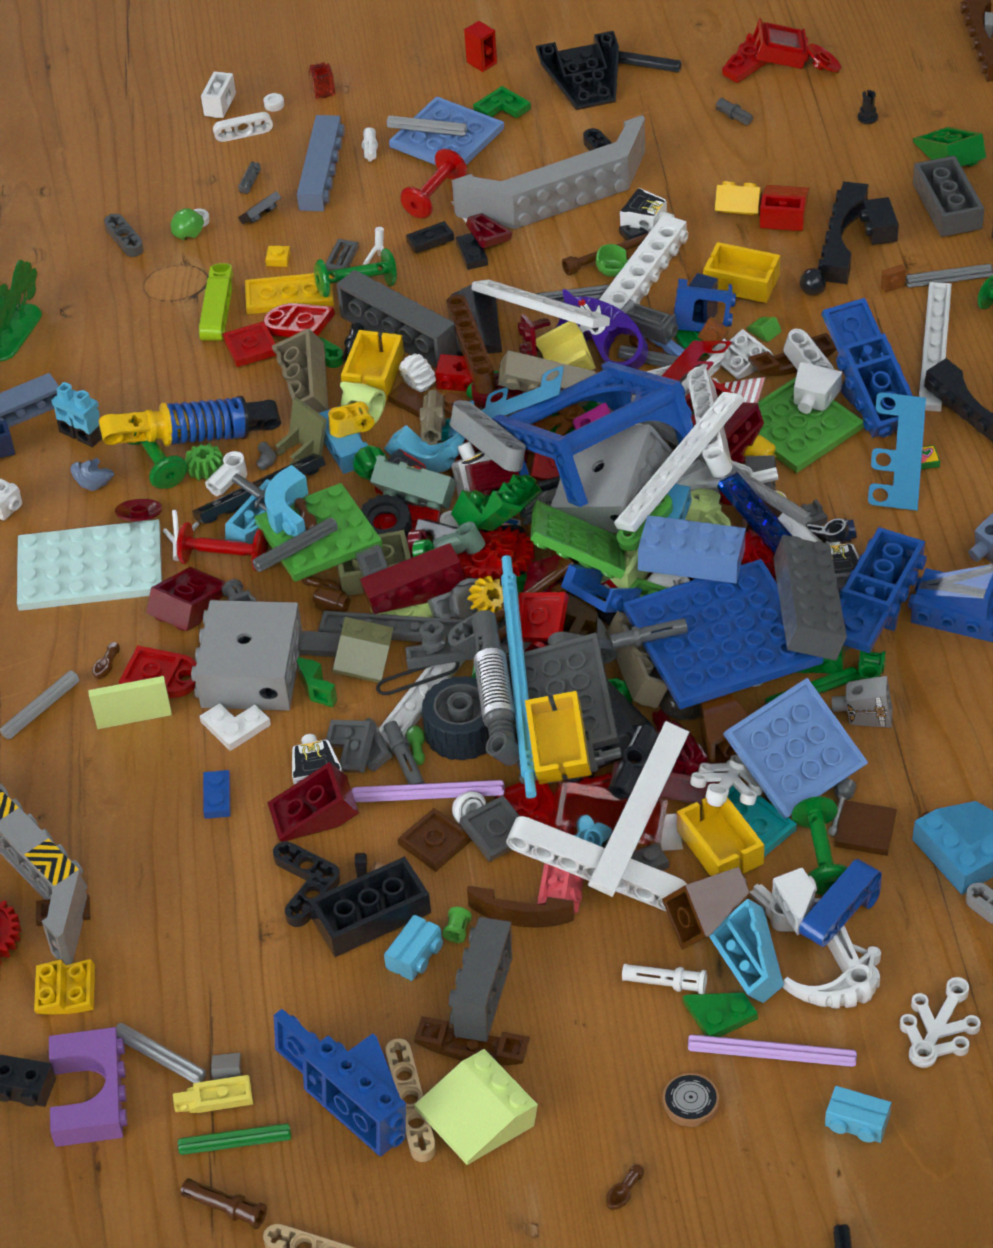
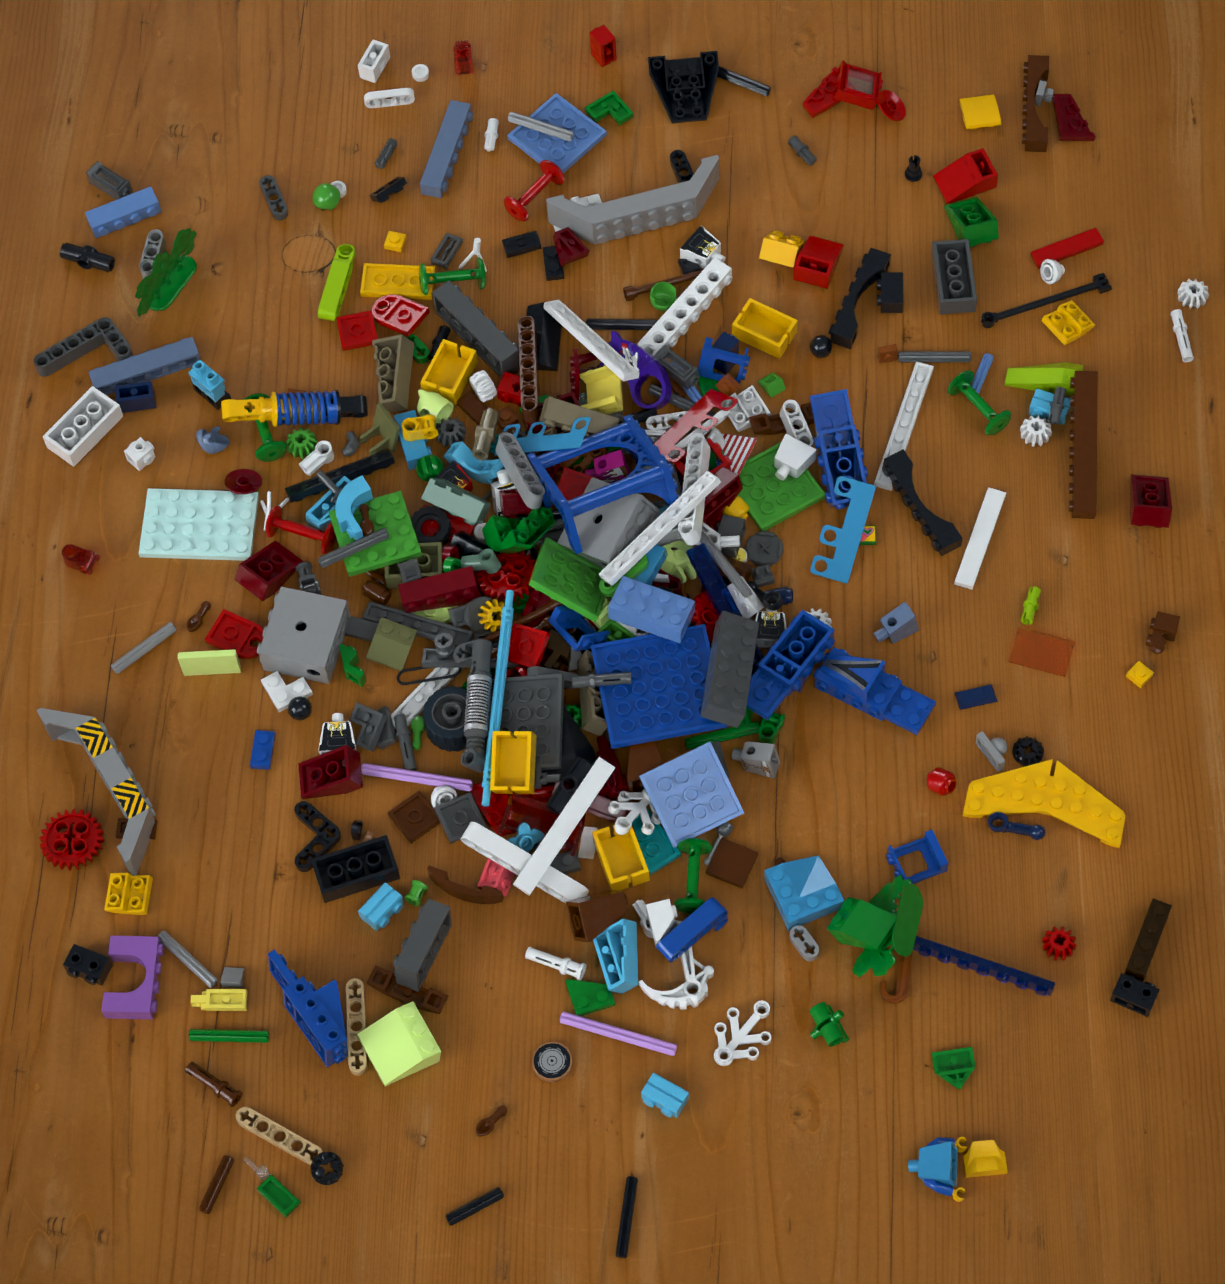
camera: 10 degrees right, 15 degrees up
(257, 738) = (299, 708): none -> black piece
(386, 424) = (450, 431): none -> dark grey gear
(804, 487) = (764, 548): none -> dark grey tile
(926, 51) = (980, 111): none -> yellow slope
(932, 106) = (967, 176): none -> red slope

